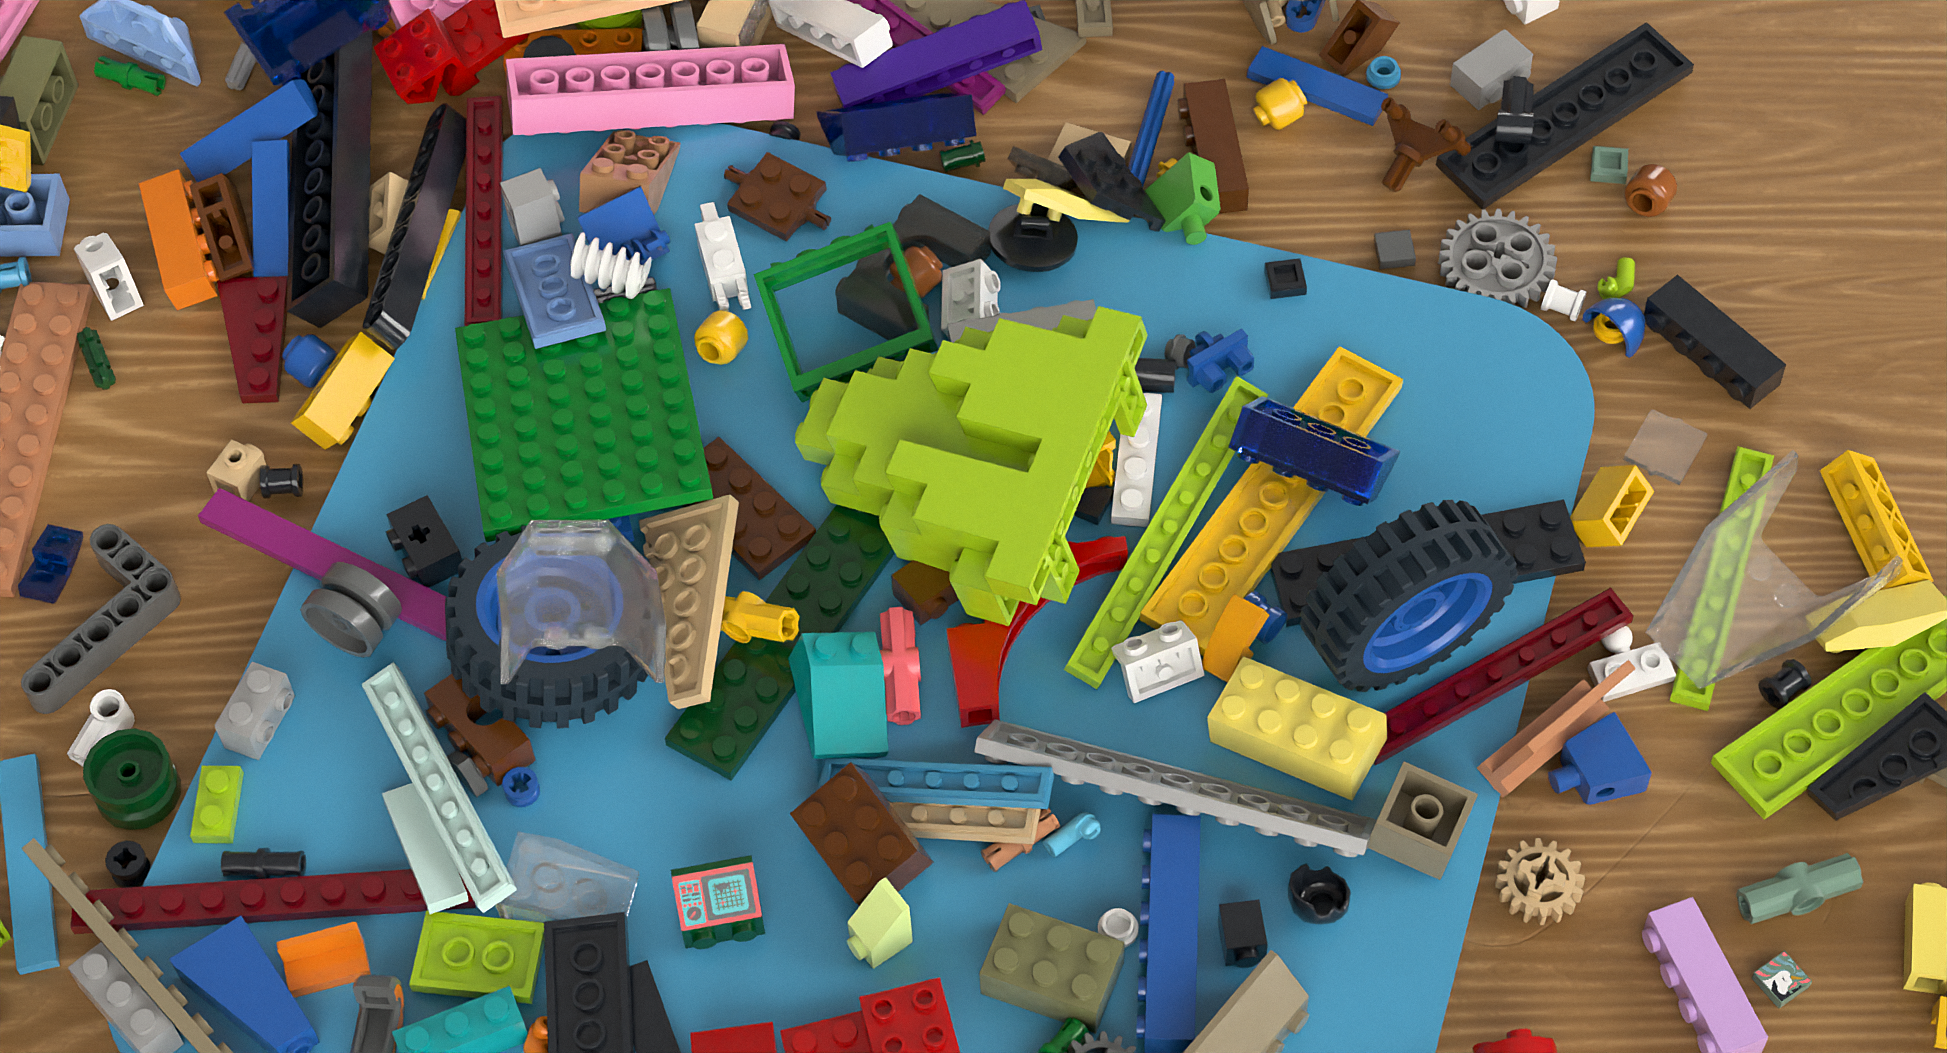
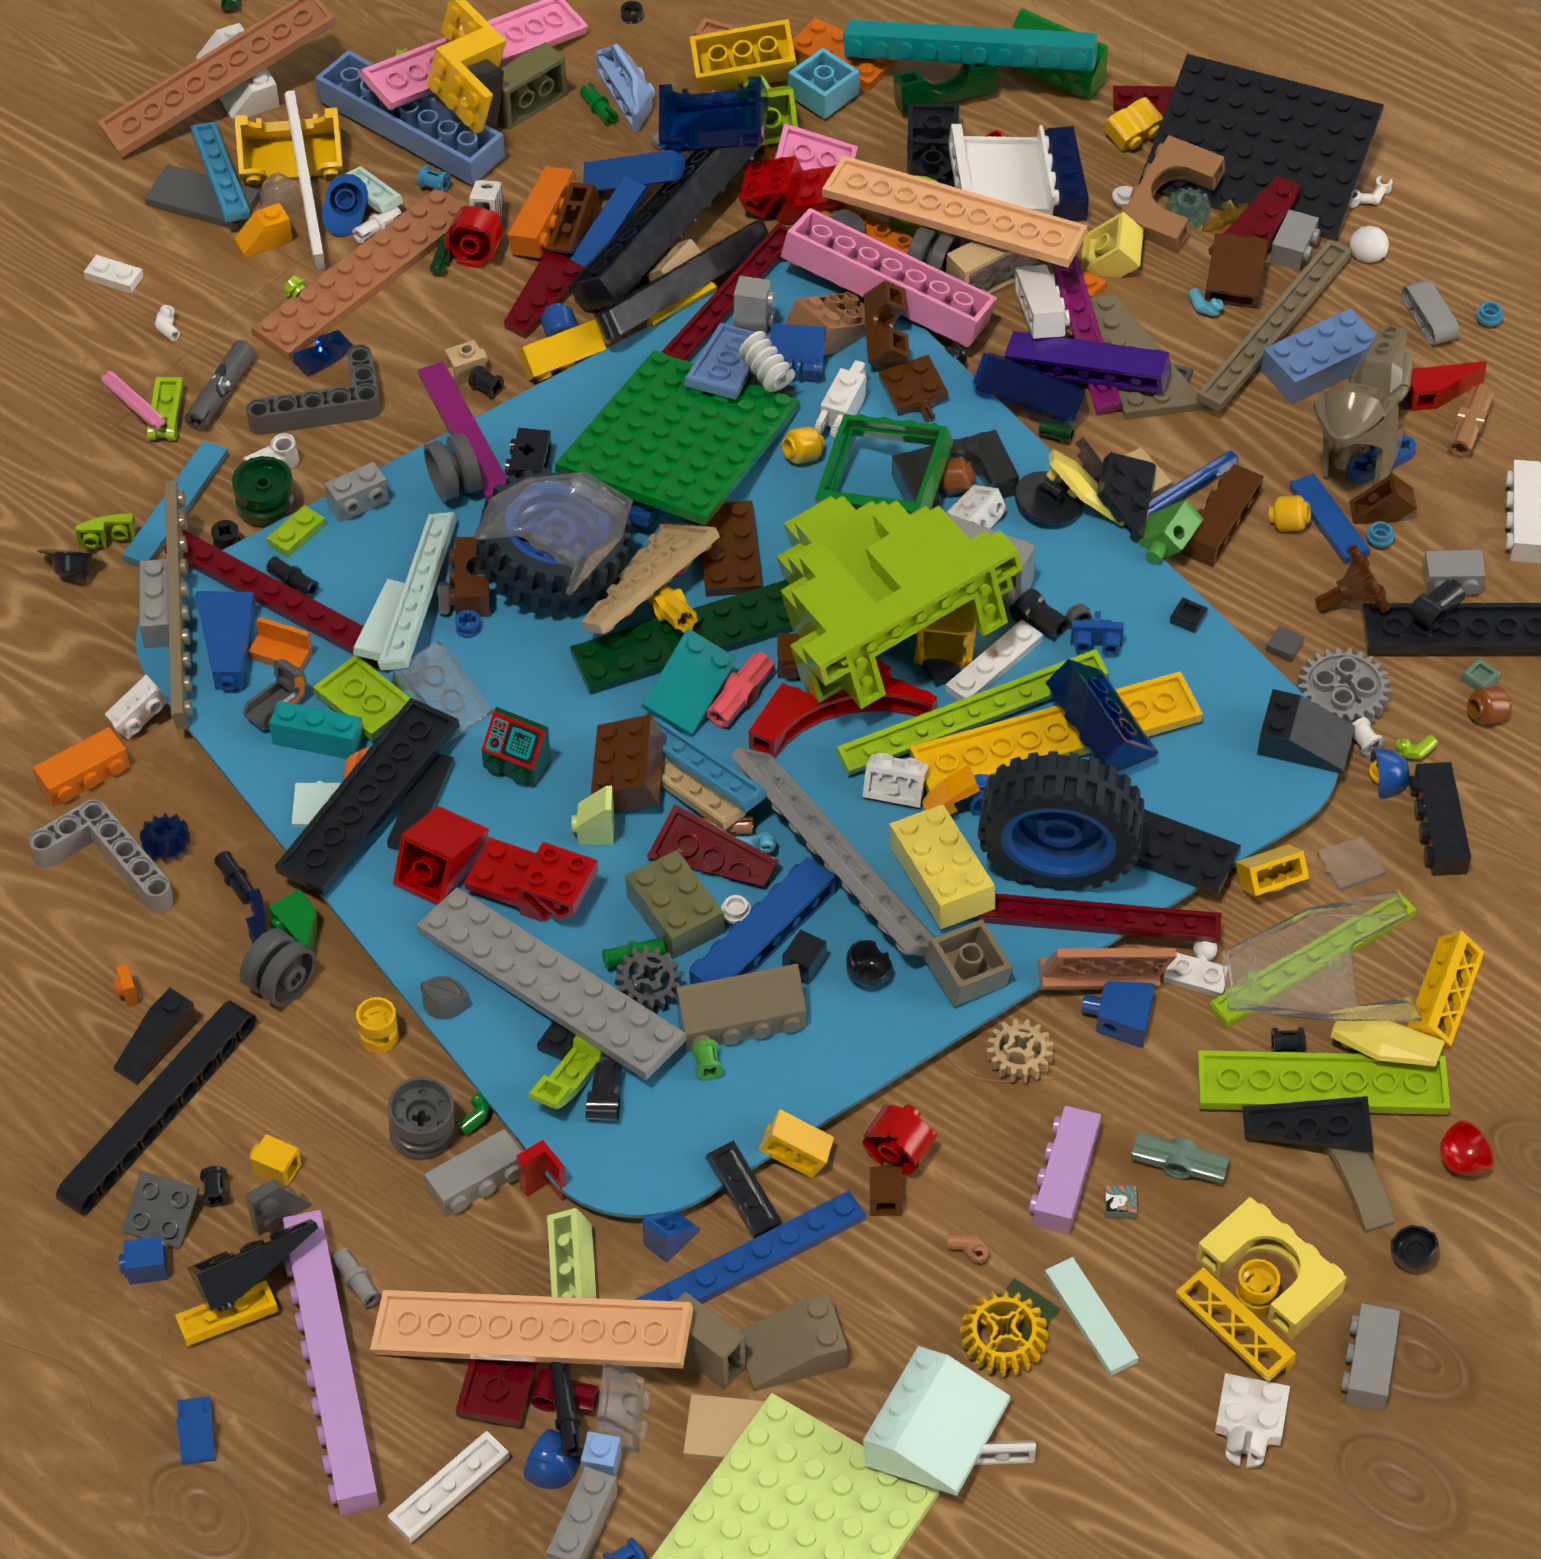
camera: 35 degrees right, 5 degrees down
(122, 314) = (474, 235): none -> red brick
(679, 129) = (882, 308): none -> reddish brown arch
(1034, 875) = (712, 849): none -> dark red wing
(1514, 336) = (1304, 733): none -> black slope

